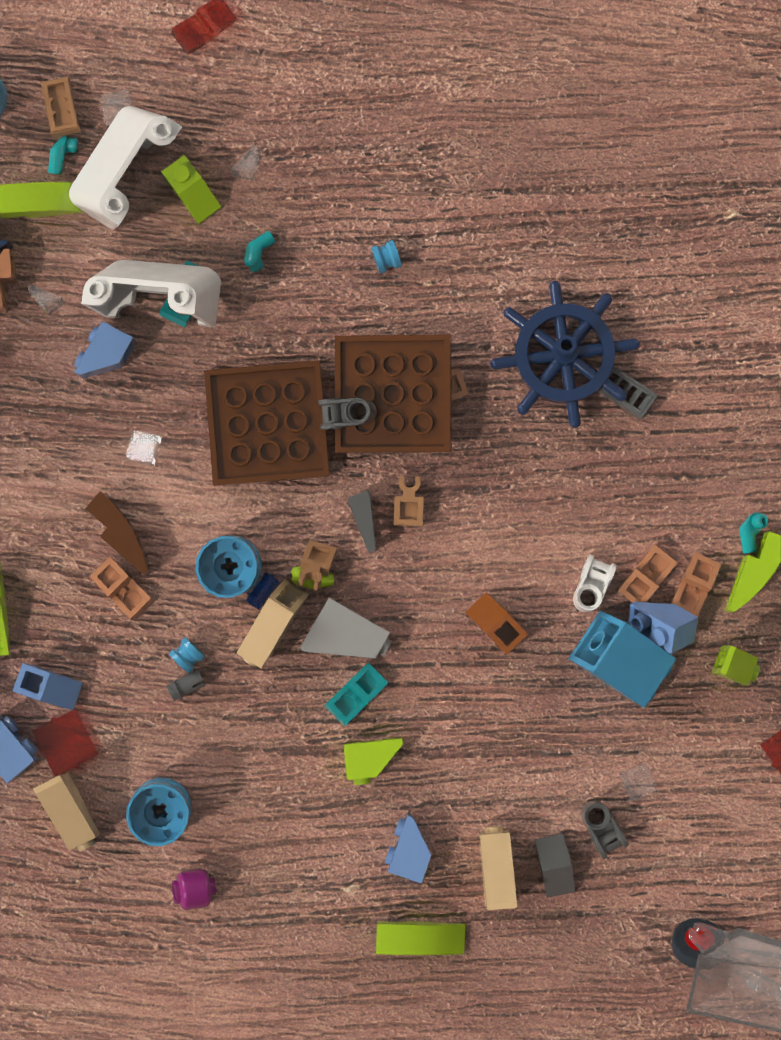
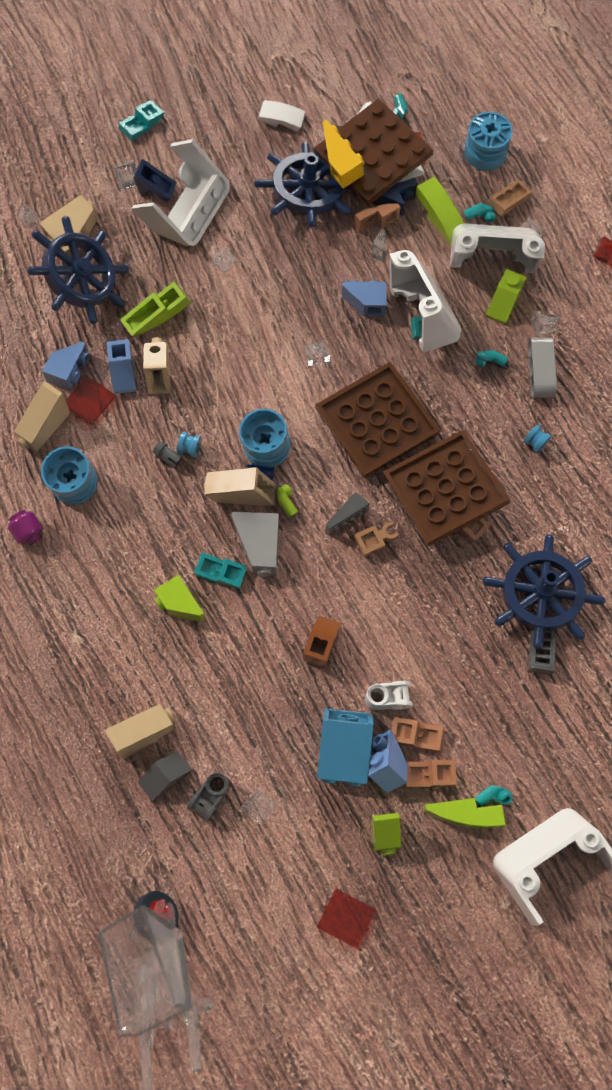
camera: 60 degrees right, 15 degrees down
(67, 644) = (157, 358): none -> tan torso
(119, 532) = (250, 363): reddish brown slope -> none
(121, 588) = (213, 384): nougat slope -> none
(301, 199) = (542, 368): none -> light grey beam
(316, 562) = (300, 495): medium nougat plate -> none
(340, 413) = (413, 457): dark grey piece -> none
(411, 852) = (123, 664): medium blue slope -> none
(420, 938) = (62, 701): lime slope -> none

